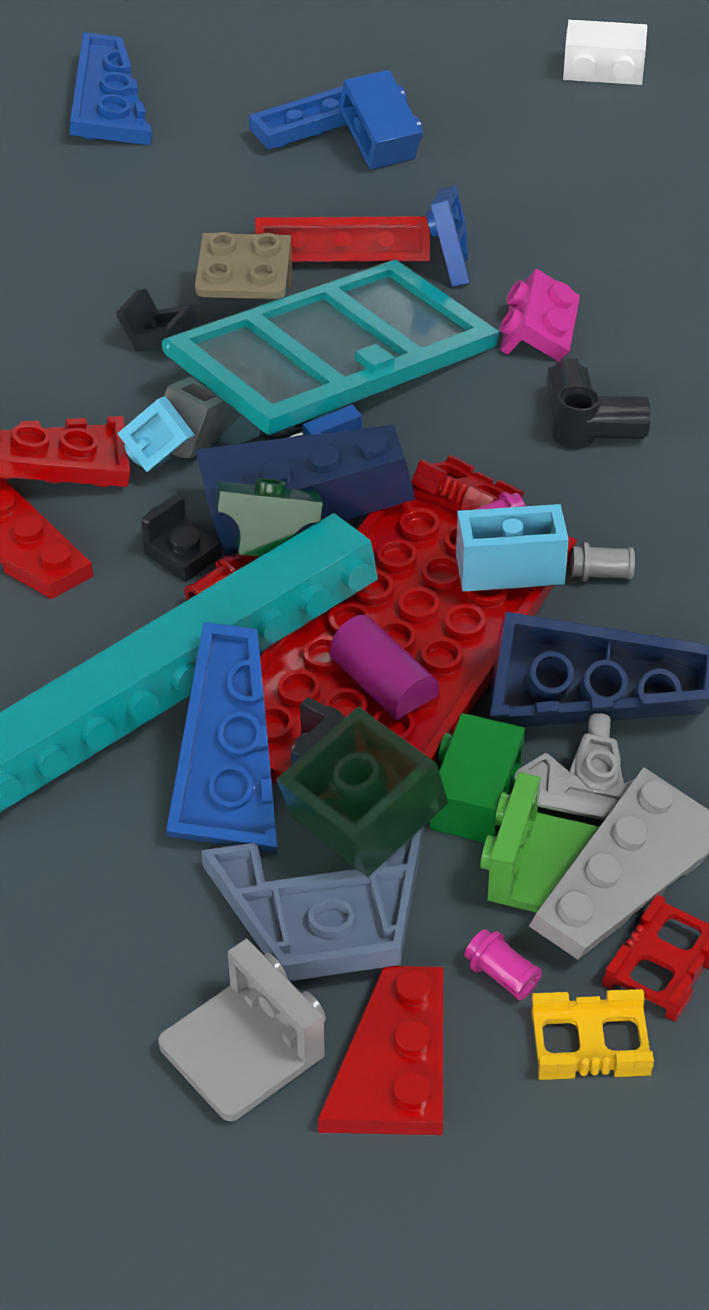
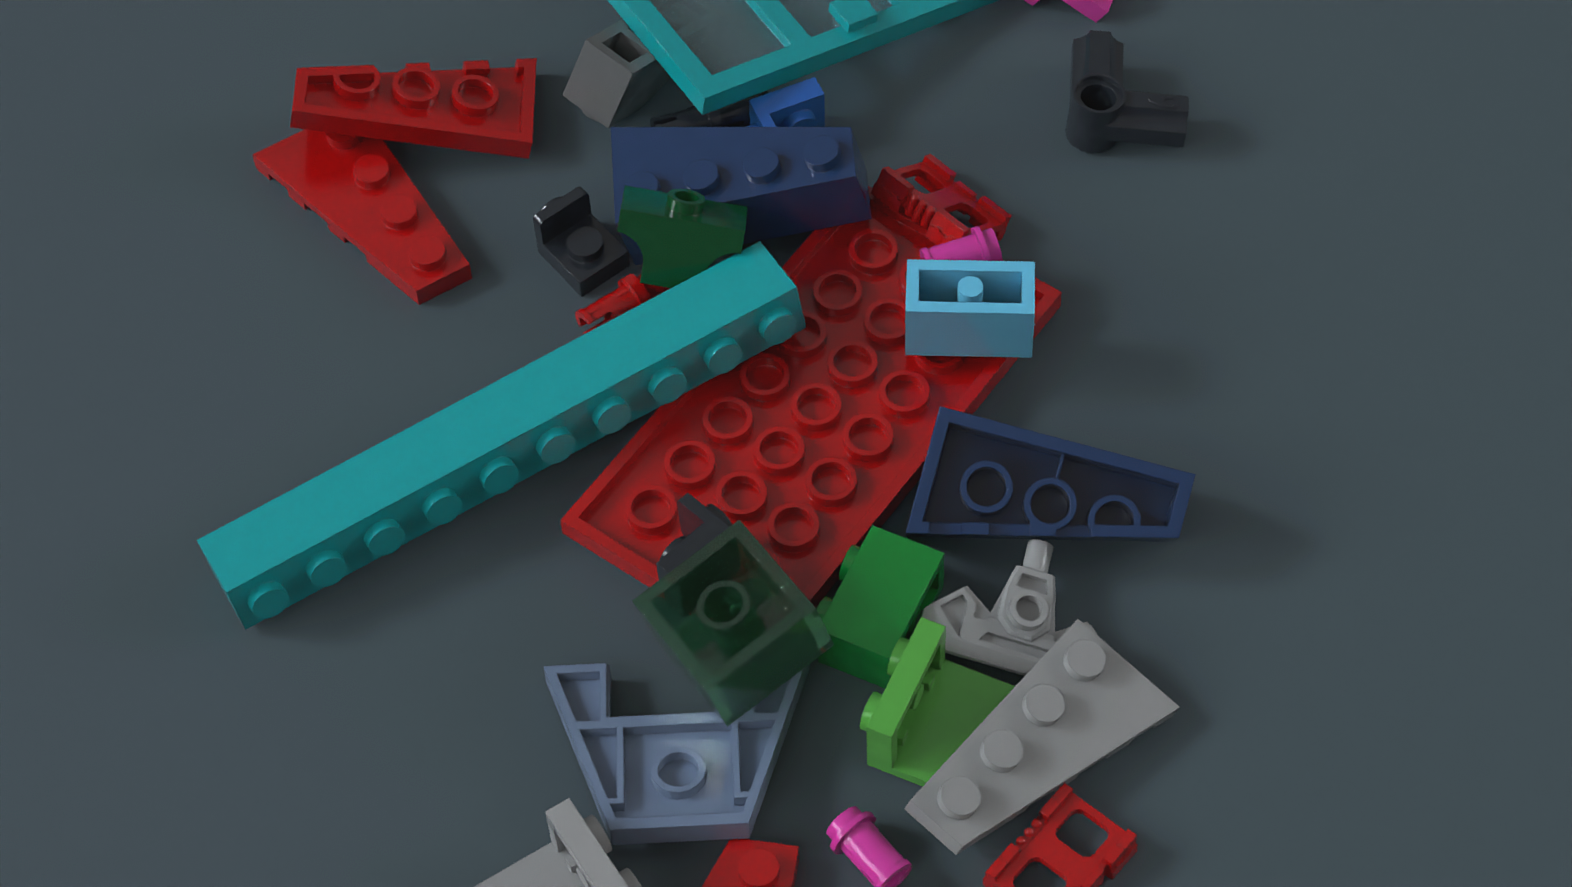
camera: 10 degrees right, 10 degrees up
(155, 435) = (566, 98): medium azure bracket -> none
(224, 755) = (587, 538): blue wing -> none
(382, 666) = (790, 451): magenta brick -> none
(602, 562) = (1089, 324): light grey pin -> none

